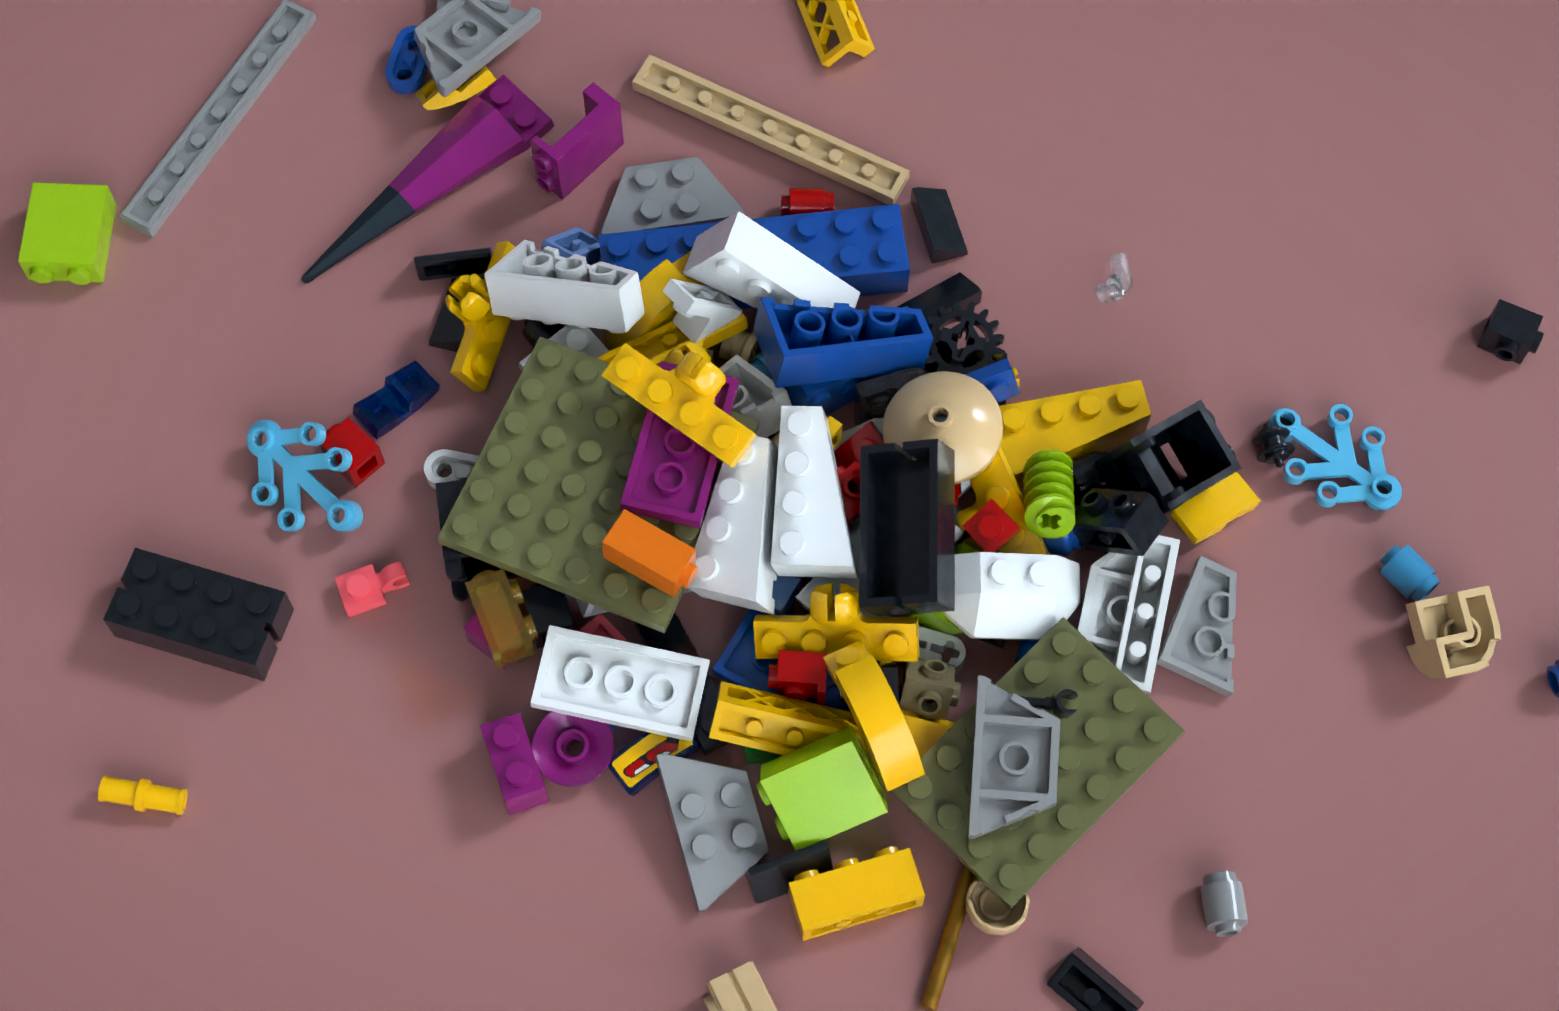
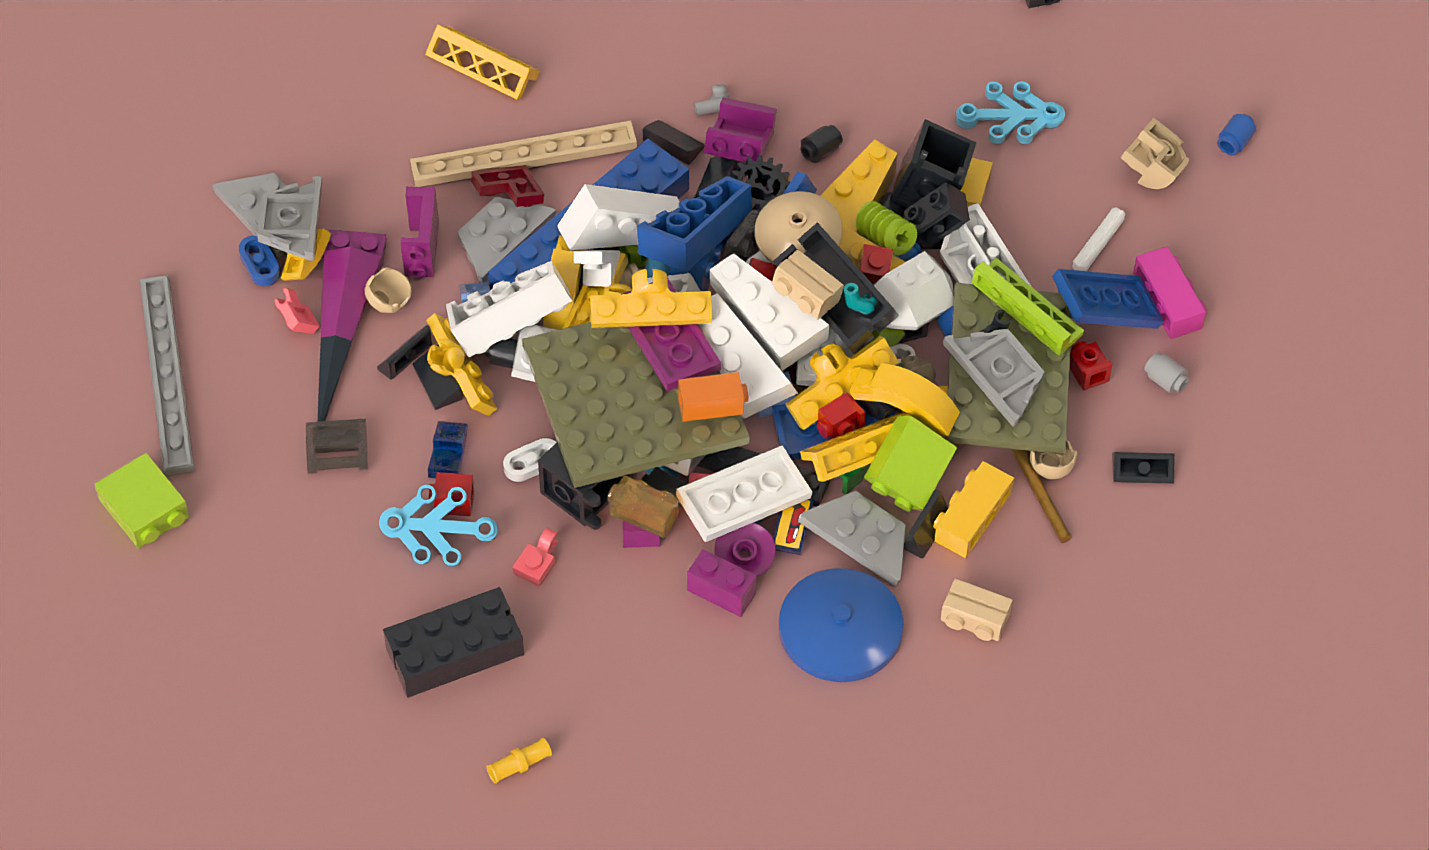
camera: 40 degrees left, 10 degrees down
(303, 303) = (336, 437): none -> clear smoke plate
(387, 144) = (297, 316): none -> coral plate
(493, 182) = (388, 290): none -> tan hair
(597, 910) = (840, 625): none -> blue dish
(727, 150) = (513, 180): none -> dark red plate
(806, 201) = (587, 175): red brick -> none
(861, 504) = (807, 285): none -> tan brick
(906, 561) = (854, 301): none -> teal arm
(1010, 267) = (740, 130): none -> magenta panel
(1023, 213) = (713, 104): none -> light grey arm
(1089, 341) = (821, 143): none -> black brick
(1100, 707) = (1023, 309): none -> lime fence
(1119, 282) = (805, 100): clear arm -> none
(1139, 835) = (1089, 365): none -> red brick
(1202, 628) = (1026, 247): light grey wing -> none
(1225, 765) = (1107, 299): none -> blue plate
(1273, 445) = (972, 128): black wheel -> none
(1297, 682) = (1099, 240): none -> white axle
(1319, 808) = (1170, 292): none -> dark pink brick
(1409, 573) = (1104, 144): dark azure brick -> none

